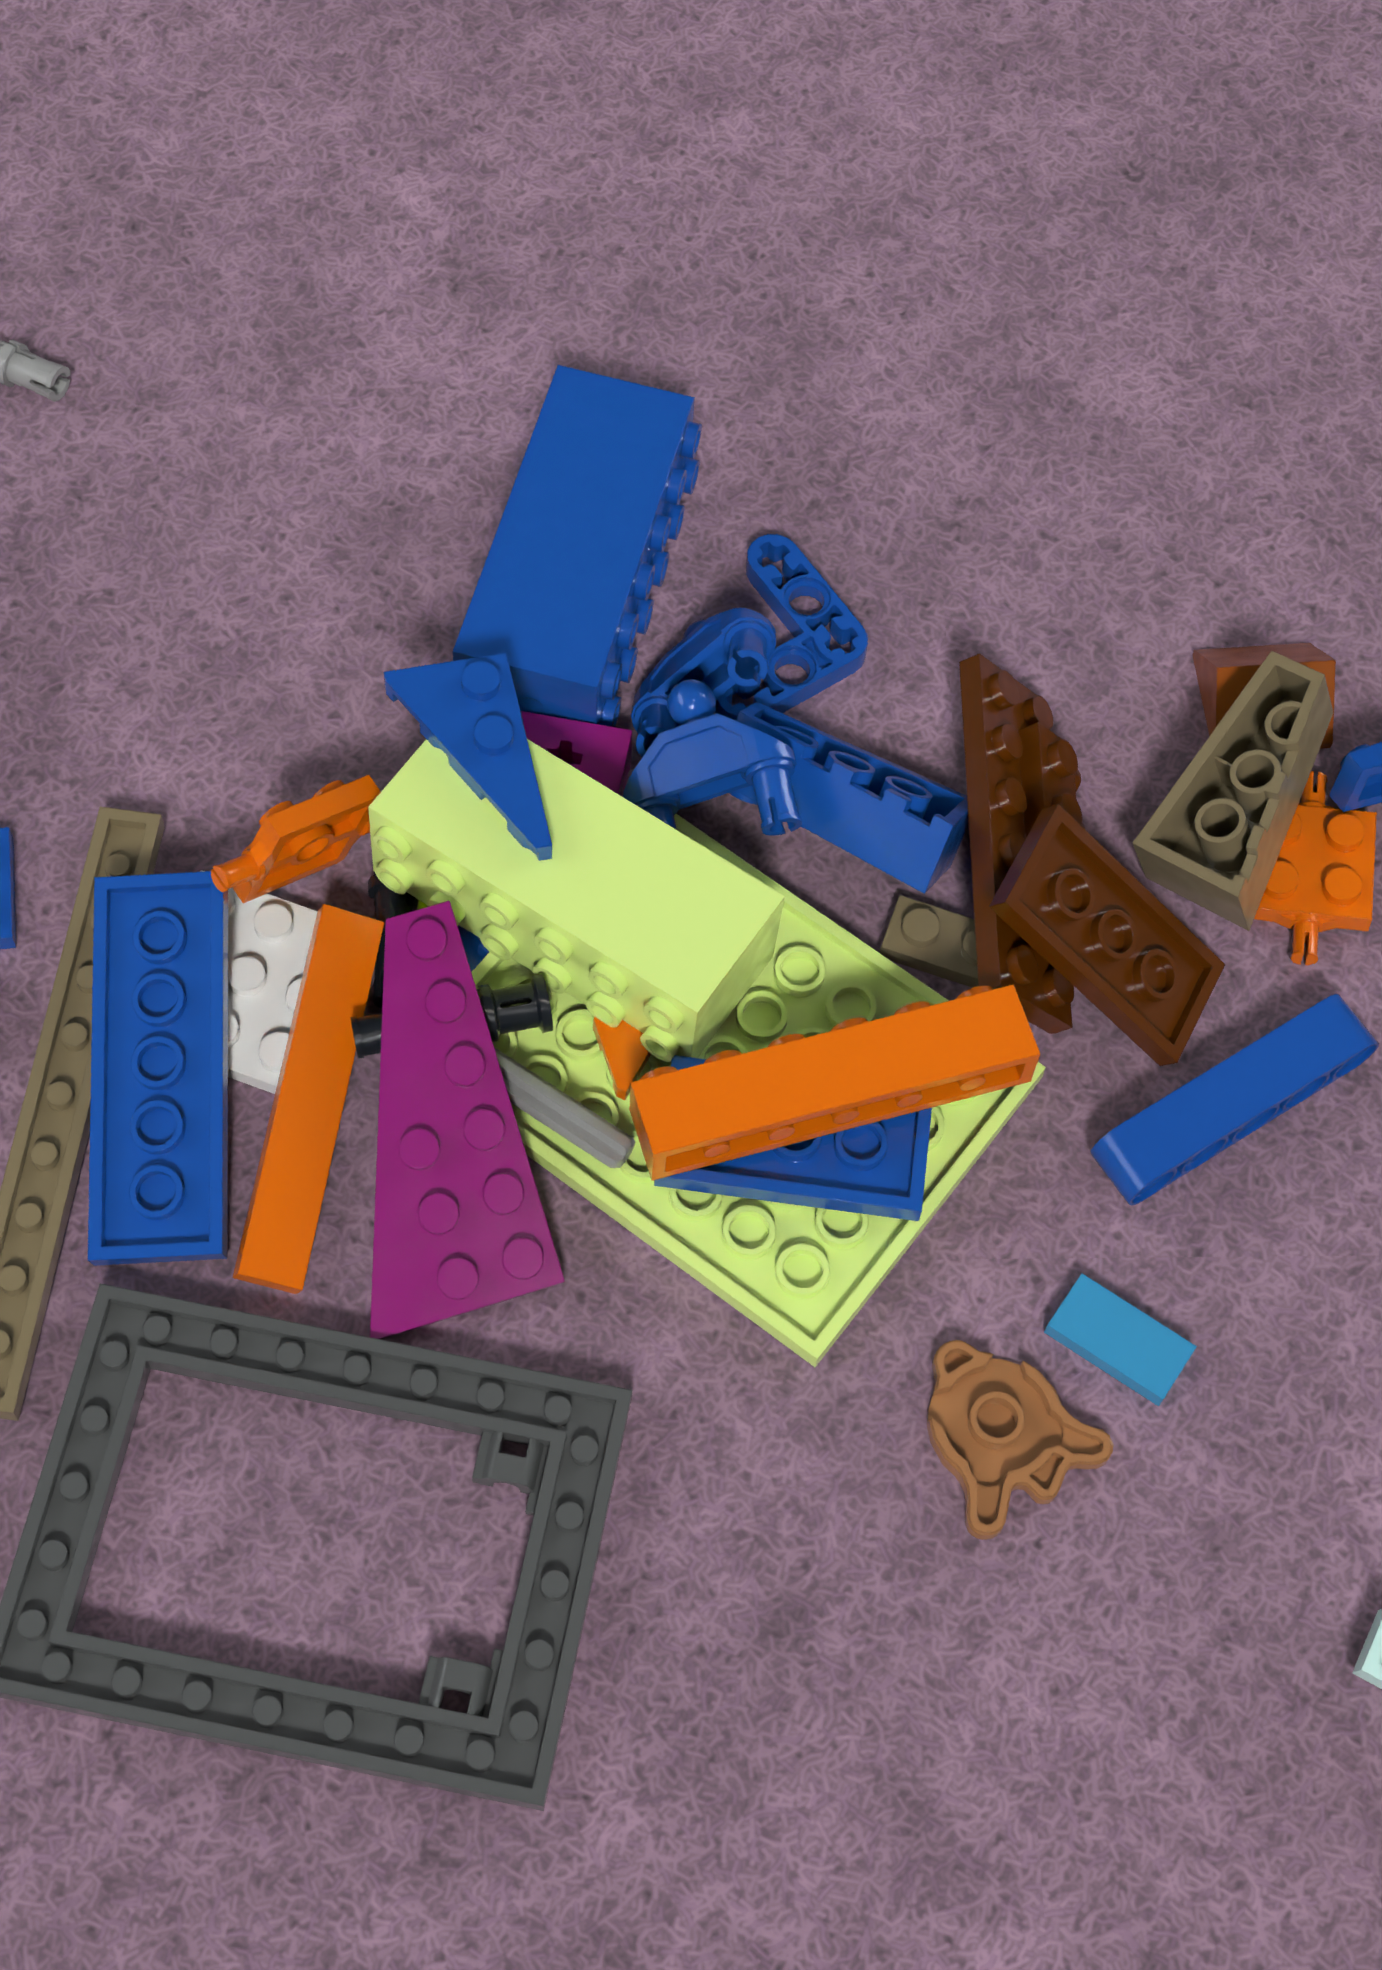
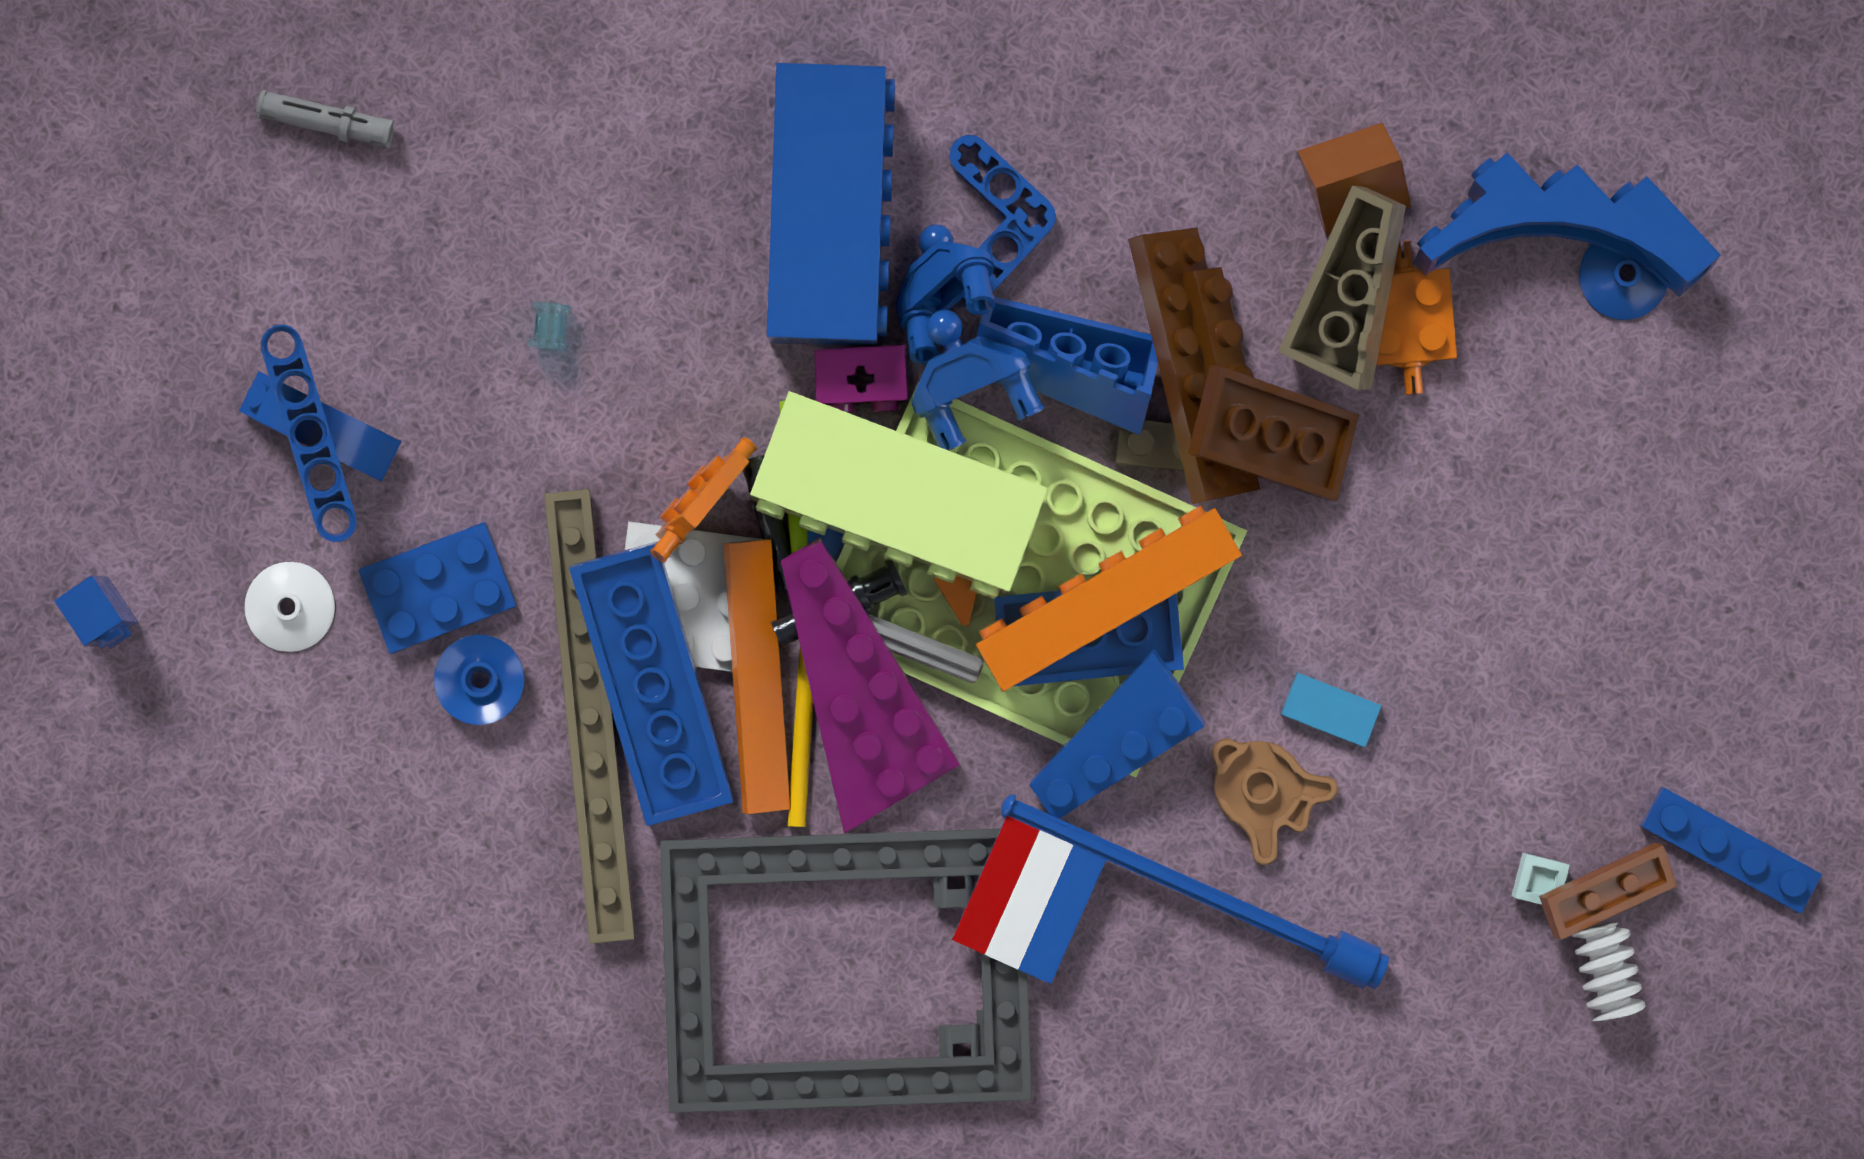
camera: 10 degrees left, 25 degrees up
(179, 624) = (550, 326): none -> clear light blue bush
(340, 1225) = (801, 748): none -> yellow bar
(477, 722) = (806, 414): blue wing -> none
(650, 1463) = (1046, 873): none -> flag
(813, 1283) = (1129, 730): none -> blue wing
(1233, 1099) = (1381, 519): blue beam -> none

